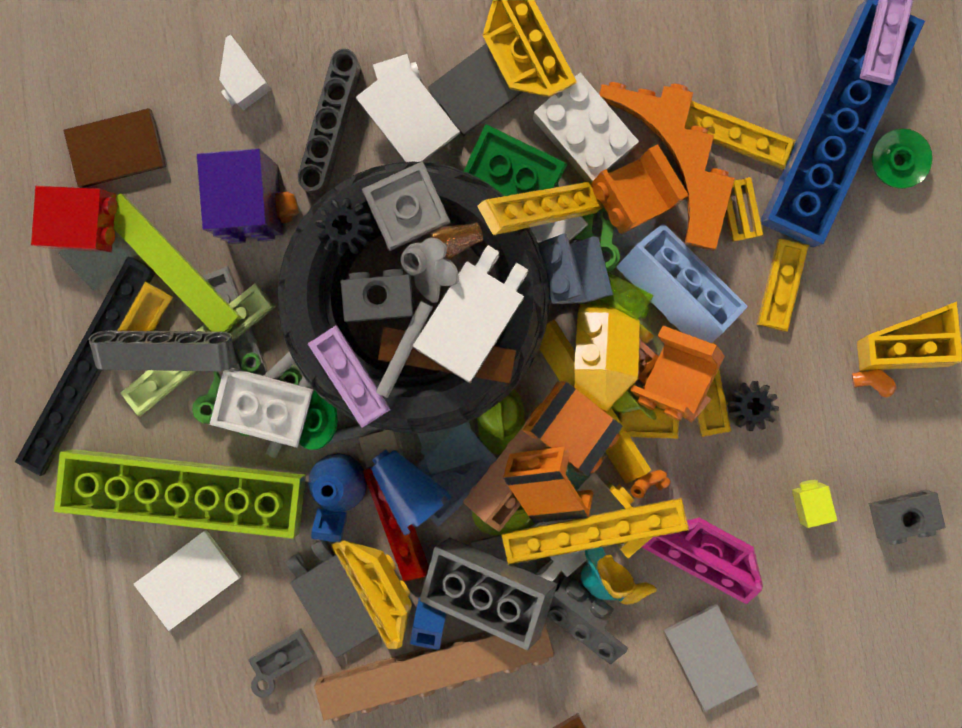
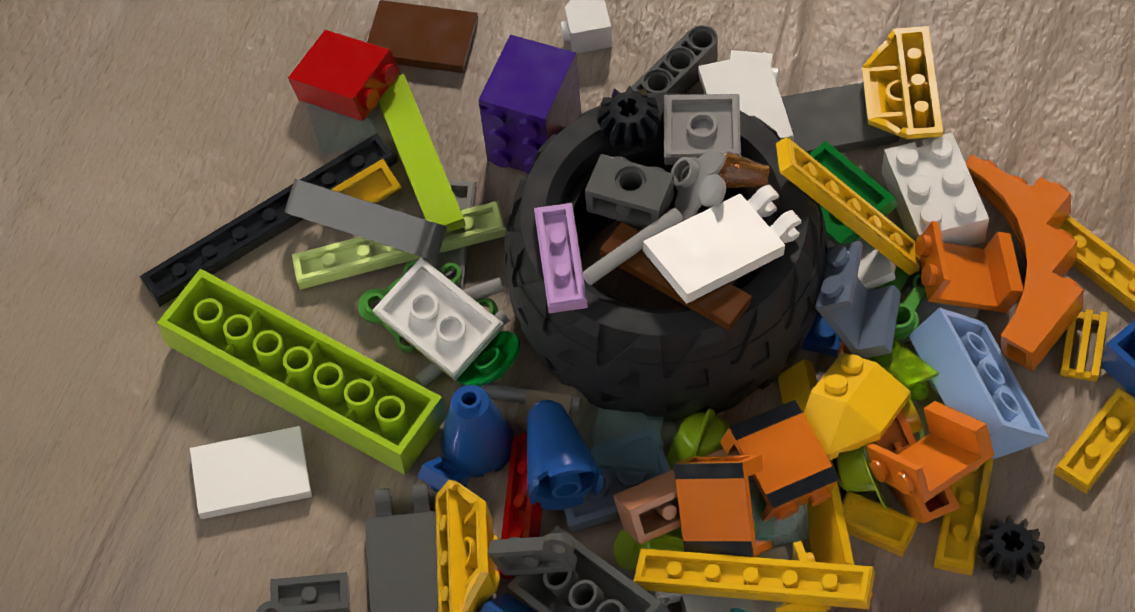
camera: 30 degrees right, 30 degrees down
(442, 580) = (534, 555): none -> dark grey hinge

